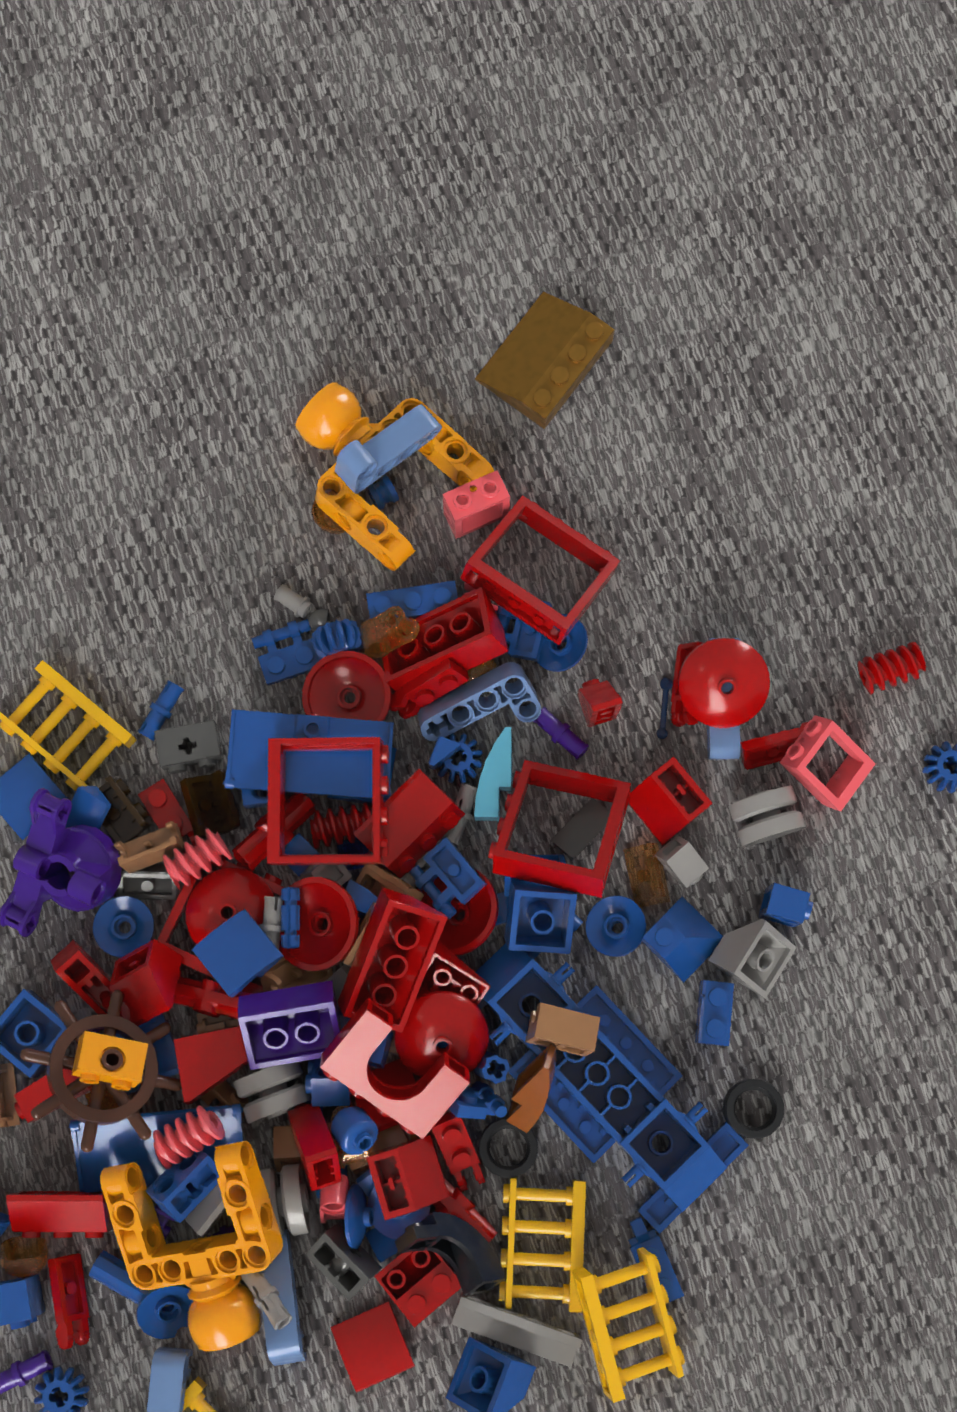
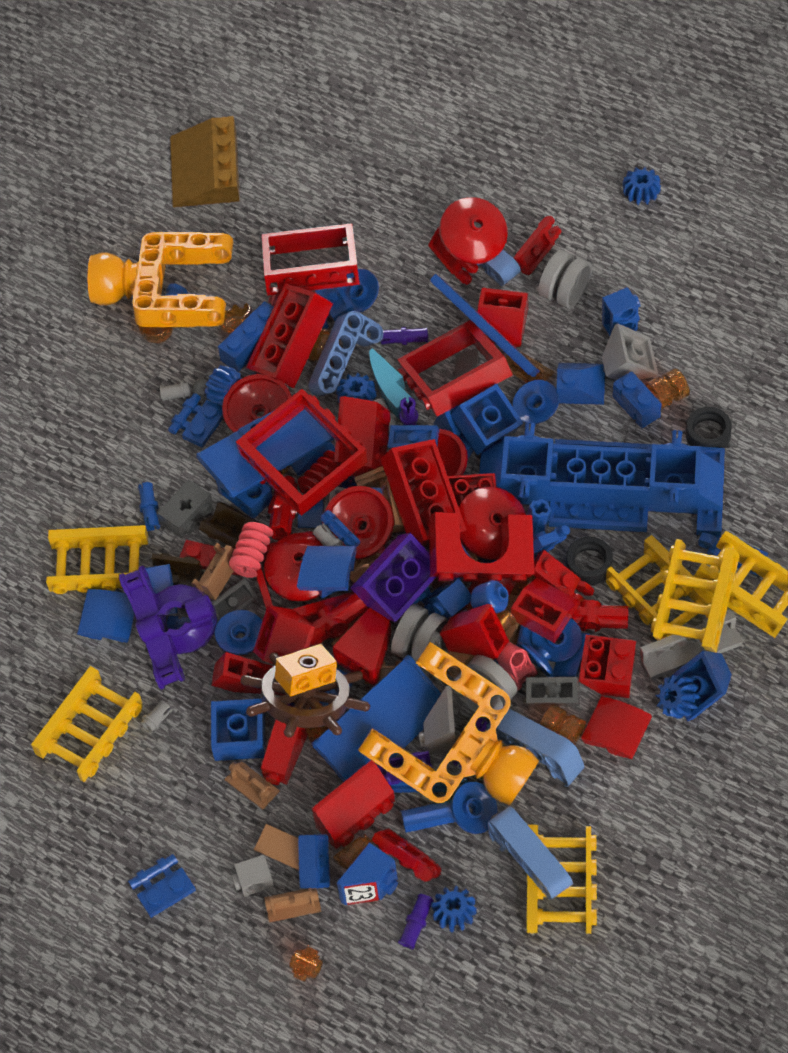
camera: 35 degrees left, 20 degrees down
(184, 1185) = (416, 719): blue brick -> none
(187, 1137) = (390, 688): coral piece -> none
(267, 1299) = (541, 733): light grey pin -> none
(321, 1306) = (567, 726): none -> clear orange wheel
(364, 464) = (155, 266): medium blue beam -> none
(385, 631) = (250, 355): clear orange piece -> none
(425, 563) = (235, 317): none -> clear orange hair
(428, 688) = (303, 362): red hinge -> none
(442, 751) = (345, 382): blue slope -> none
(451, 1375) = (677, 696): none -> blue gear
(460, 1246) = (612, 623): black arch -> none
(473, 510) = (239, 256): coral window -> none
(473, 830) = (408, 413): none -> dark purple pin
(532, 1090) = (573, 503): dark orange slope -> none
(564, 1029) = (559, 453): medium nougat hinge -> none
(580, 1320) = (714, 611): none -> yellow fence
(599, 702) = (413, 298): red slope -> none
(636, 804) = (484, 325): none -> blue tile
(666, 684) = (440, 268): dark blue hinge -> none
(682, 861) = (540, 340): light grey brick -> none
(755, 1028) = (669, 387): none -> clear orange wheel
(845, 779) = (591, 238): coral window -> none
(890, 666) = (560, 162): red piece -> none

